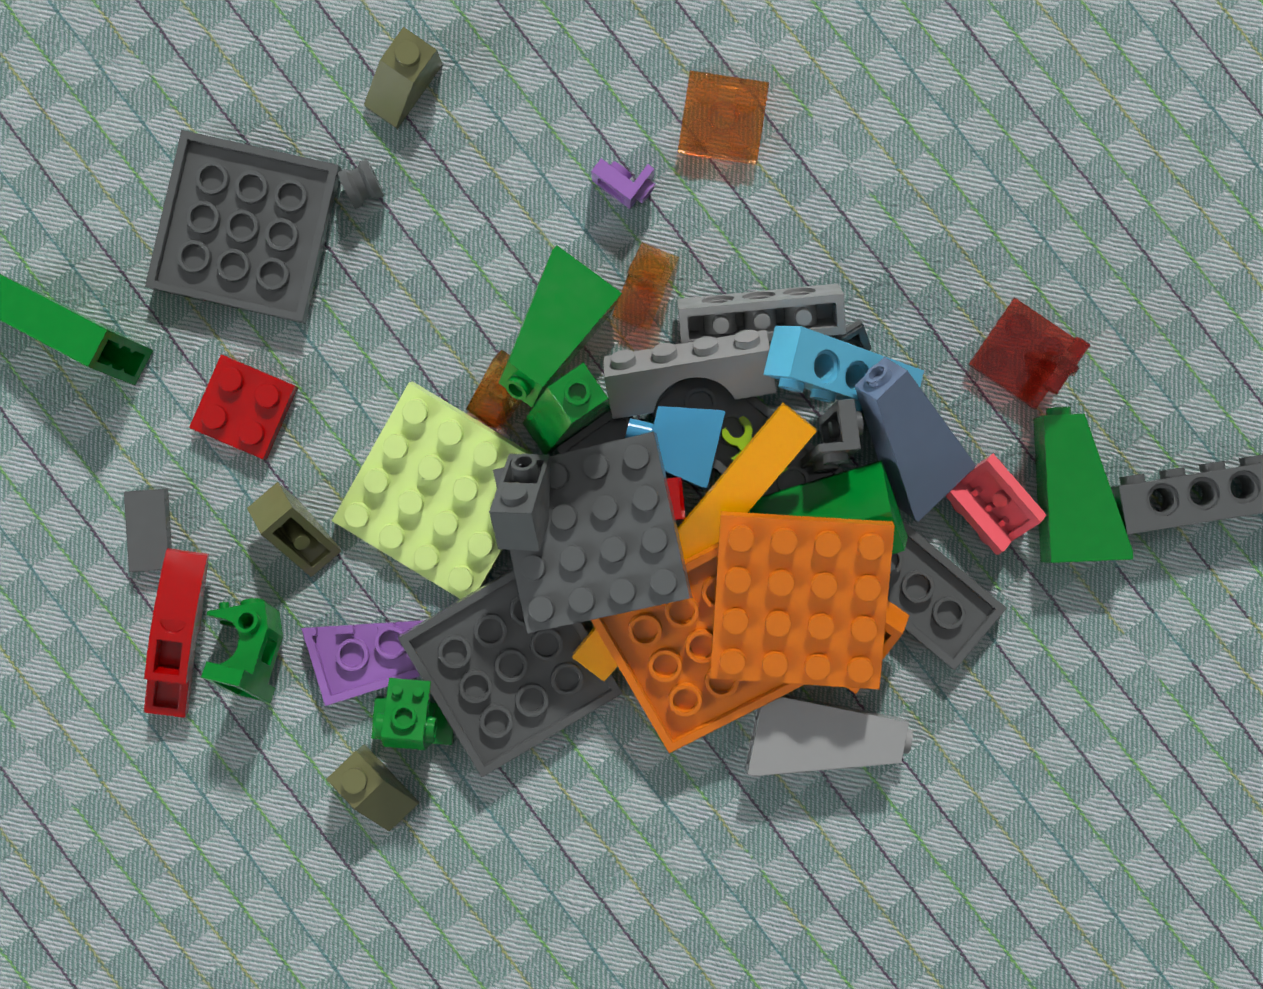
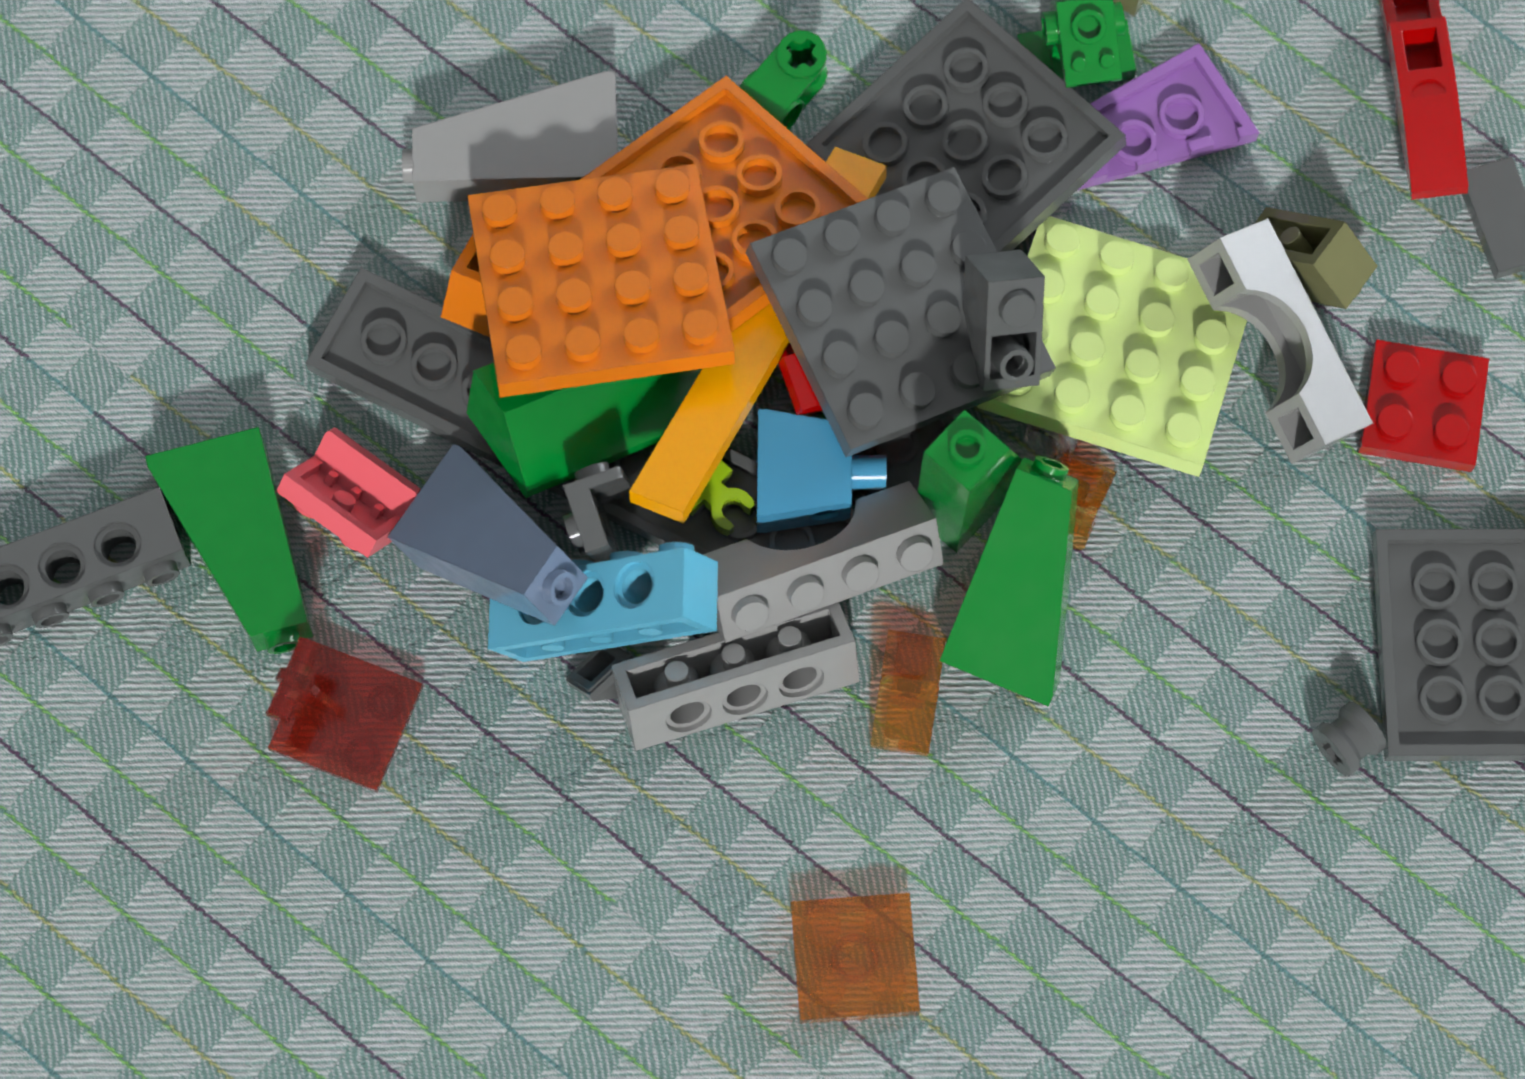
camera: 160 degrees right, 15 degrees down
(259, 642) = (1308, 83): green tile -> none
(317, 418) = (1256, 280): none -> light grey arch
(402, 77) = (1332, 904): olive slope -> none
(616, 182) = (986, 822): medium lavender bracket -> none
(633, 736) = (787, 89): none -> green piece

